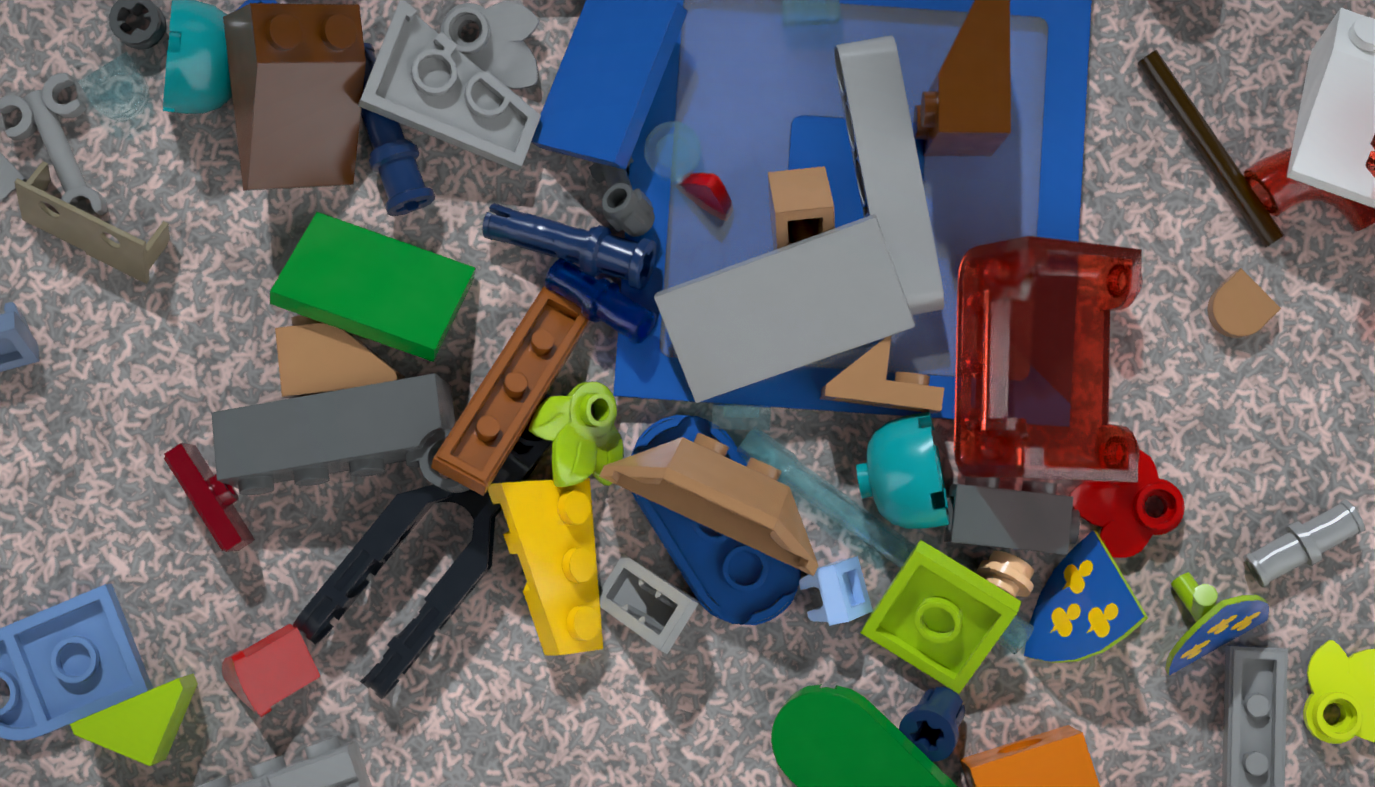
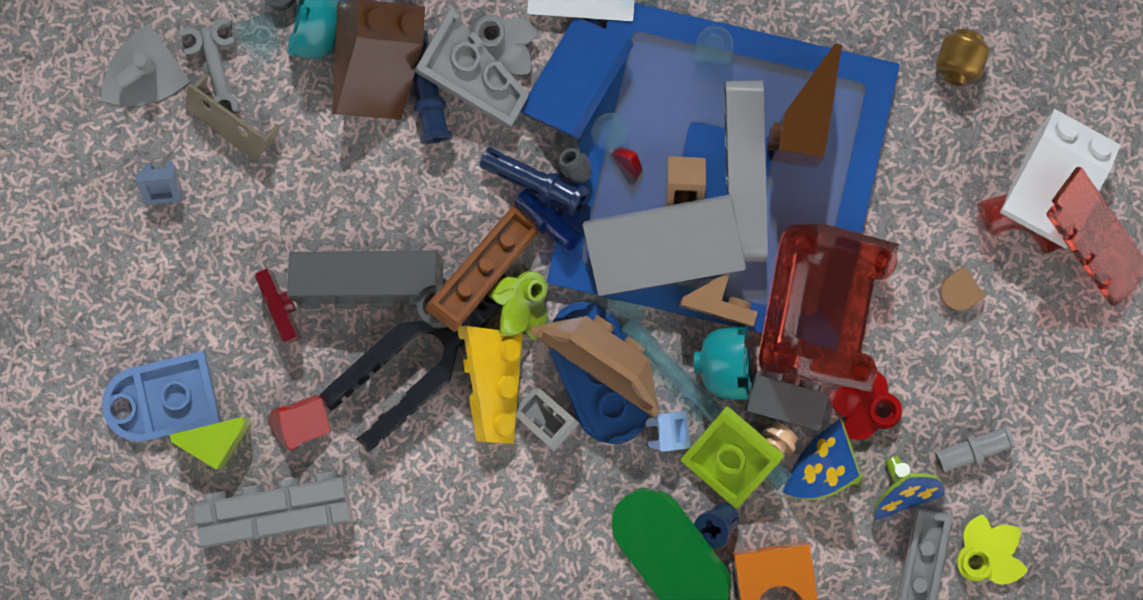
camera: 15 degrees right, 0 degrees up
(325, 359) = (366, 229): medium nougat slope -> none
(373, 286) = (404, 187): green tile -> none
(1210, 148) = (958, 185): dark brown bar -> none

